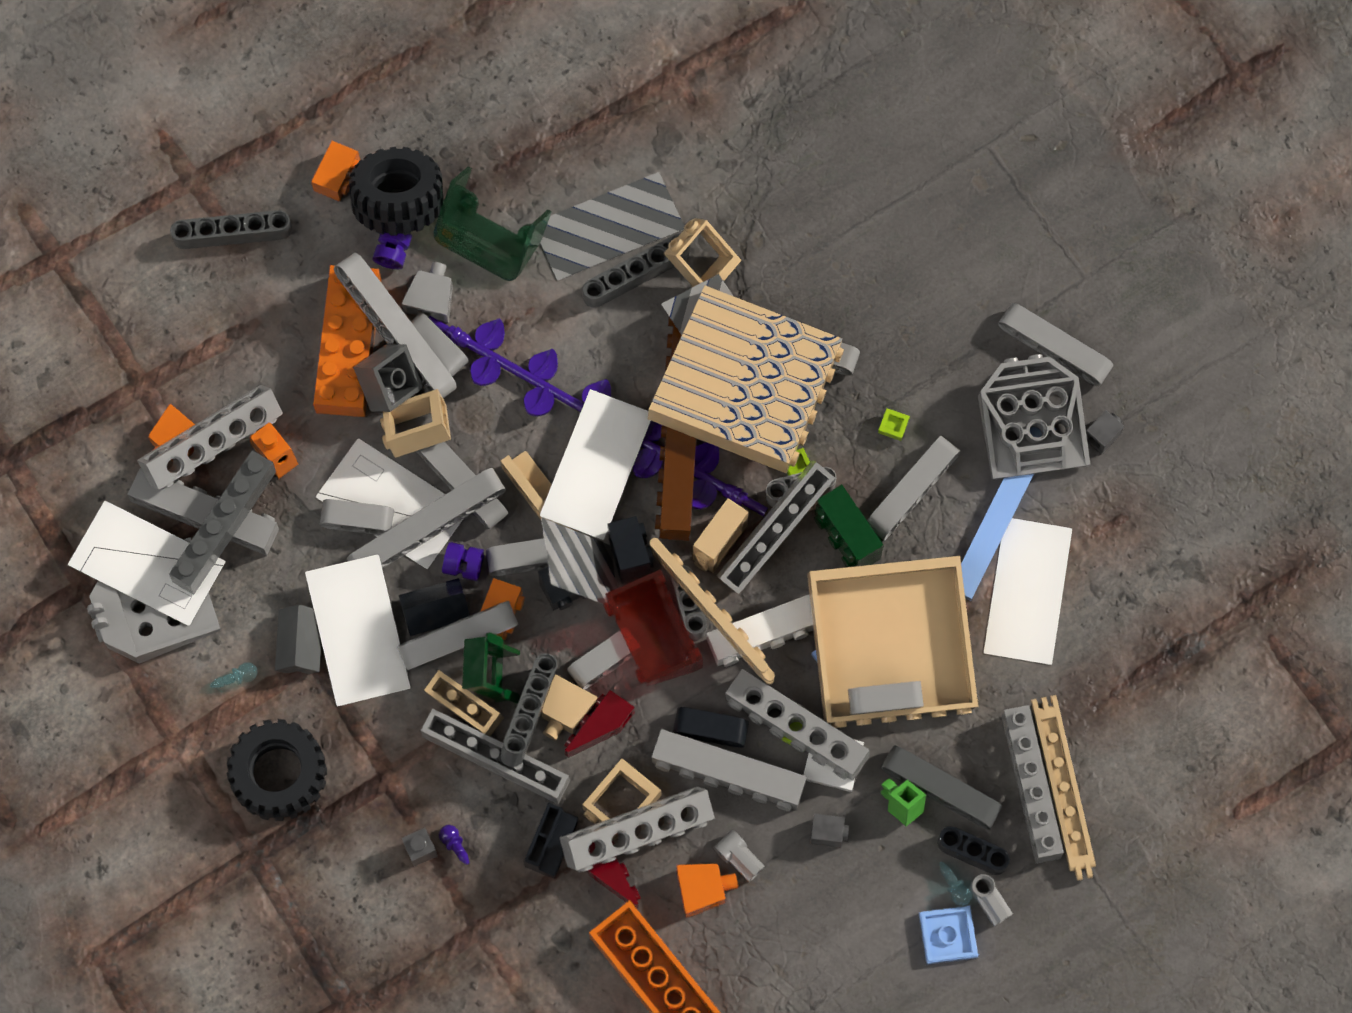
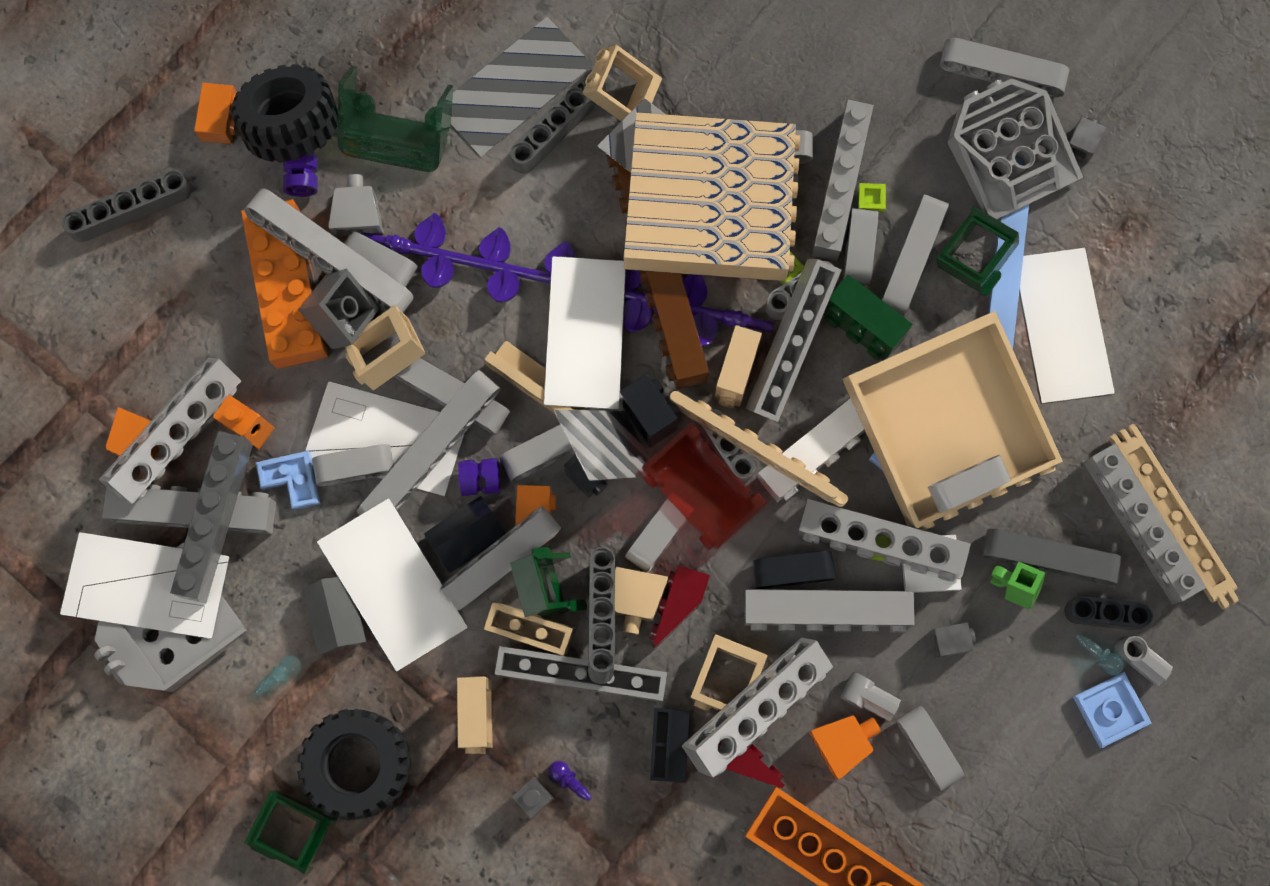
camera: 15 degrees left, 5 degrees up
(219, 825) = (313, 843): none -> dark green piece
(304, 508) = (296, 473): none -> light blue tile
(393, 760) = (474, 714): none -> tan window
(776, 915) = (930, 748): none -> light grey beam
(868, 464) = (860, 245): none -> light grey beam
(871, 401) = (842, 180): none -> light grey brick
(973, 524) = (991, 275): none -> dark green piece

